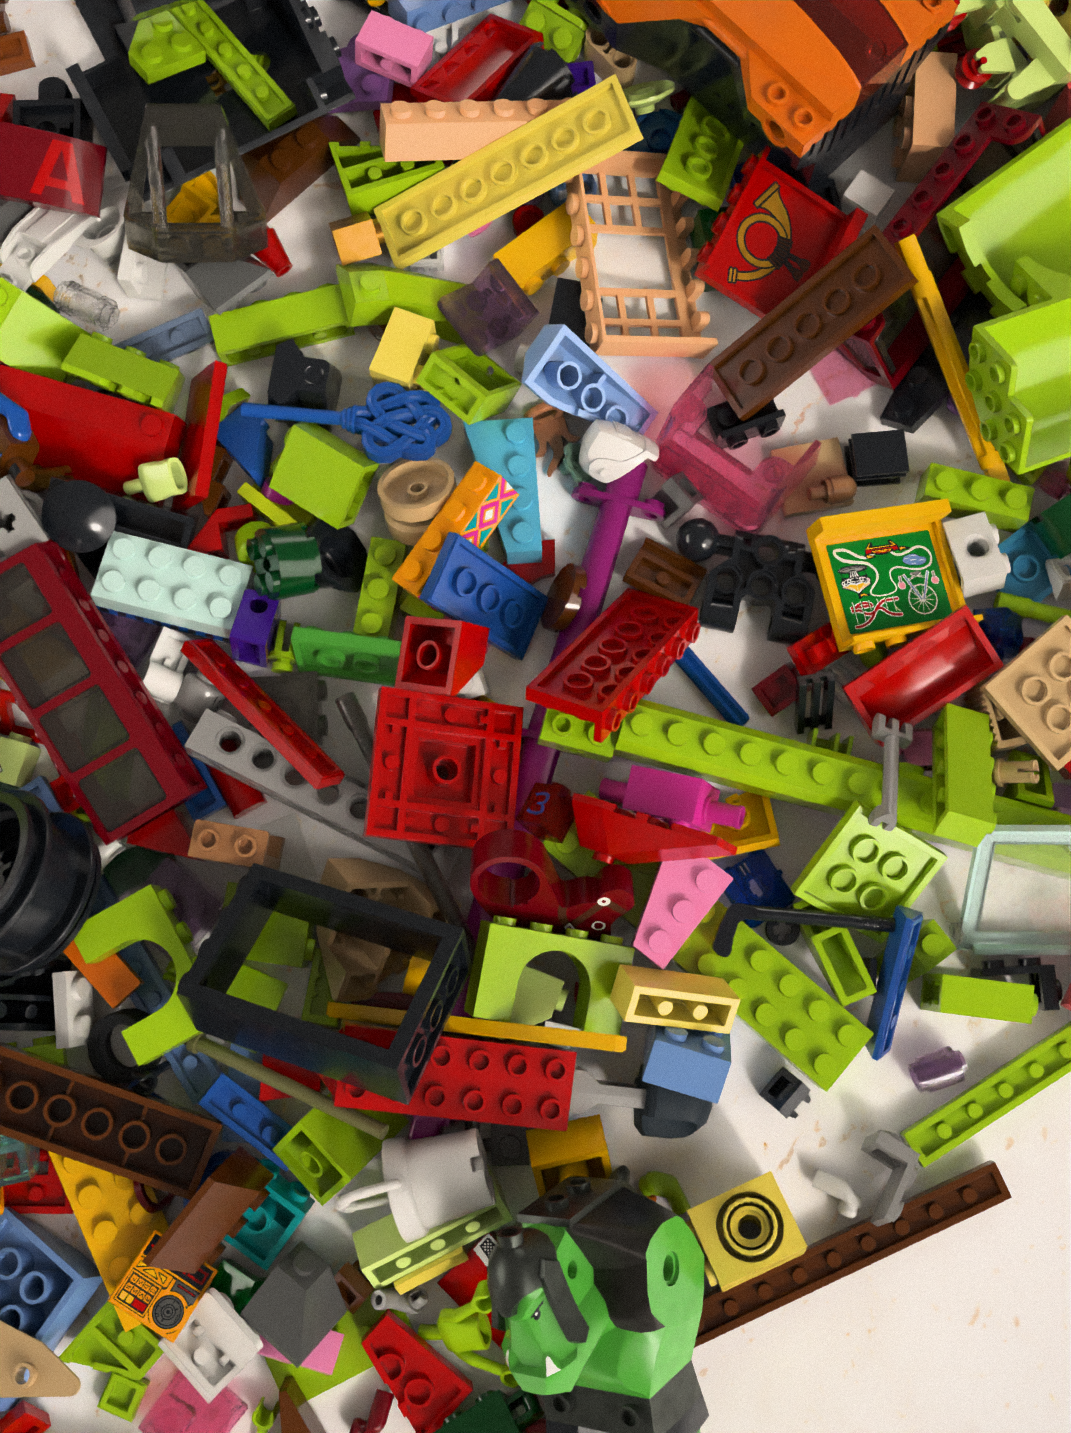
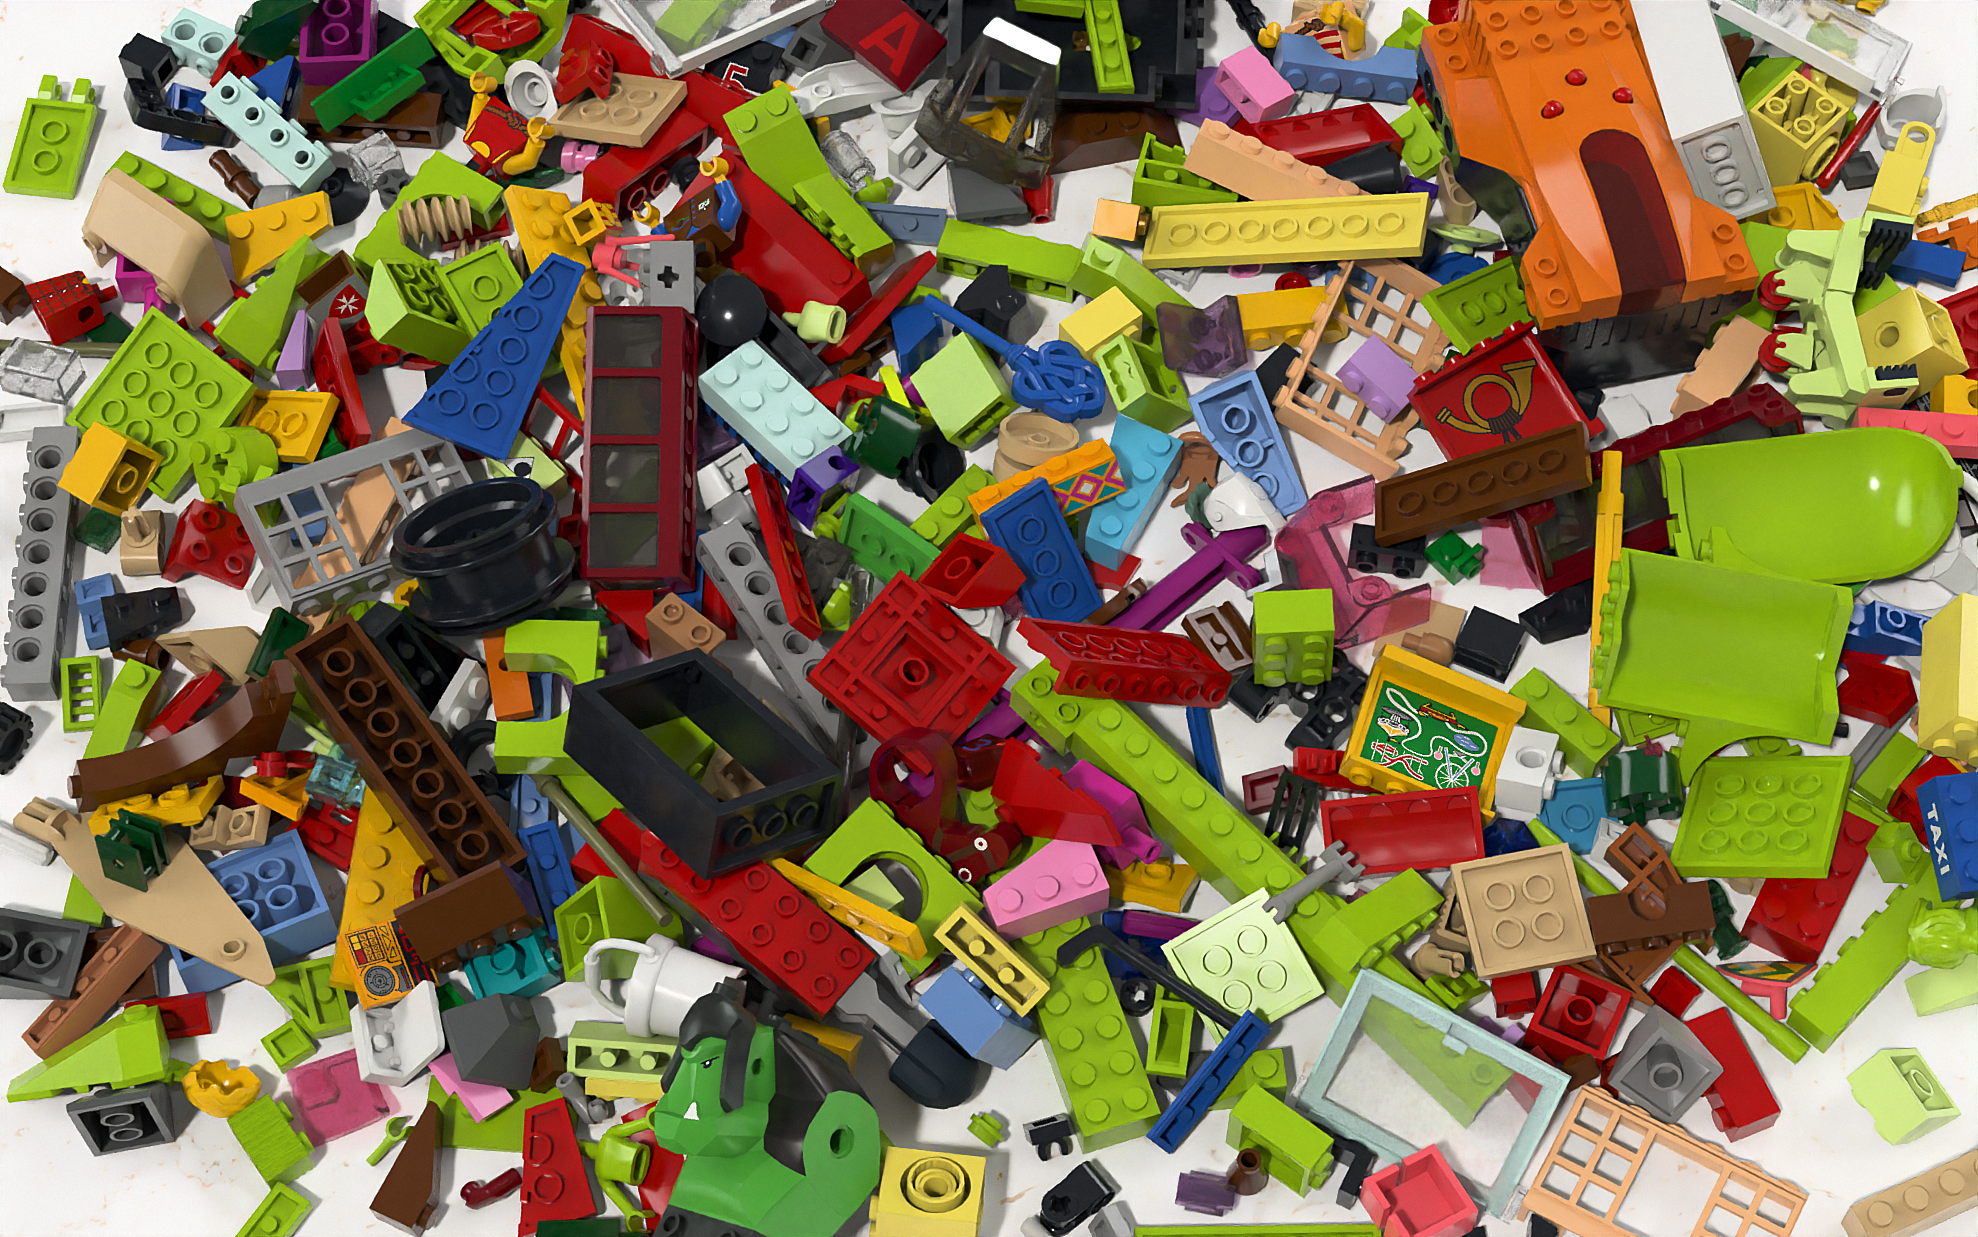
camera: 30 degrees right, 20 degrees down
(129, 323) = (875, 192): none -> lime piece
(339, 736) = (837, 611): none -> lime piece
(659, 269) = (1378, 378): none -> lavender brick
(736, 1120) = (986, 1129): none -> lime plate
(745, 556) = (1292, 636): none -> lime brick
(783, 857) = (1156, 925): none -> magenta axle
(803, 396) = (1454, 557): none -> green bracket
(842, 1133) = (1079, 1196): none -> black piece
(951, 1032) = (1247, 1173): none -> reddish brown cone

